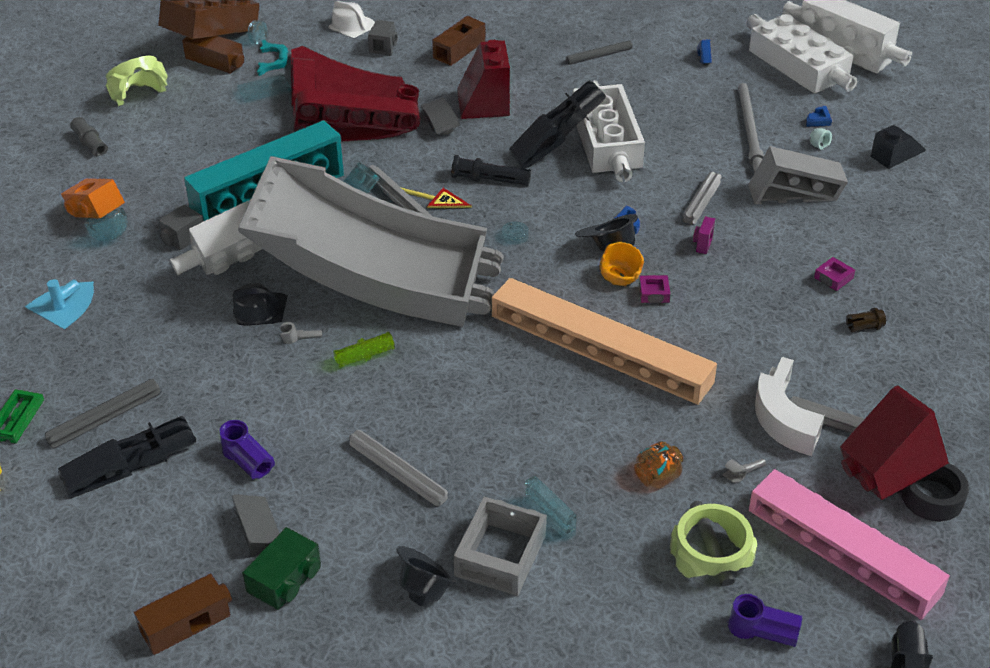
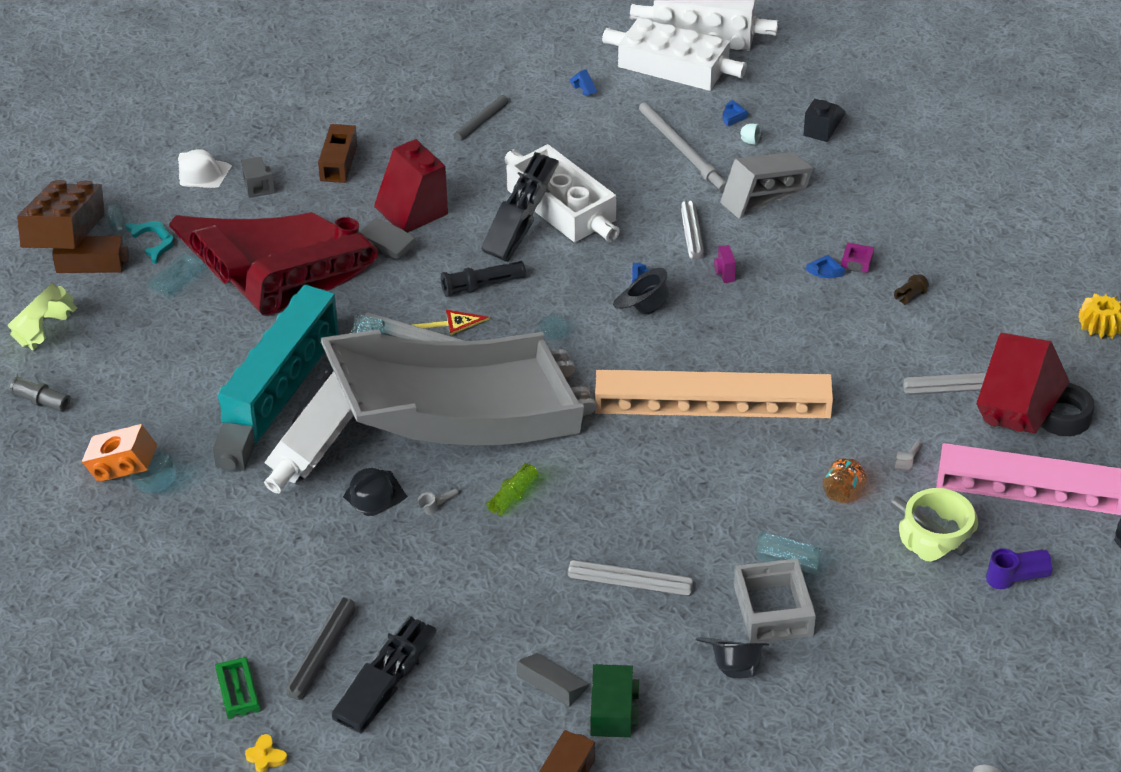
camera: 30 degrees left, 0 degrees up
(64, 303) = (176, 567): medium azure shield -> none
(244, 449) = (478, 619): dark purple piece -> none
(622, 259) = (677, 314): light orange hair -> none
(654, 289) = (720, 330): magenta plate -> none
(780, 417) = (908, 399): white arch -> none
(799, 271) = (825, 266): none -> blue tile

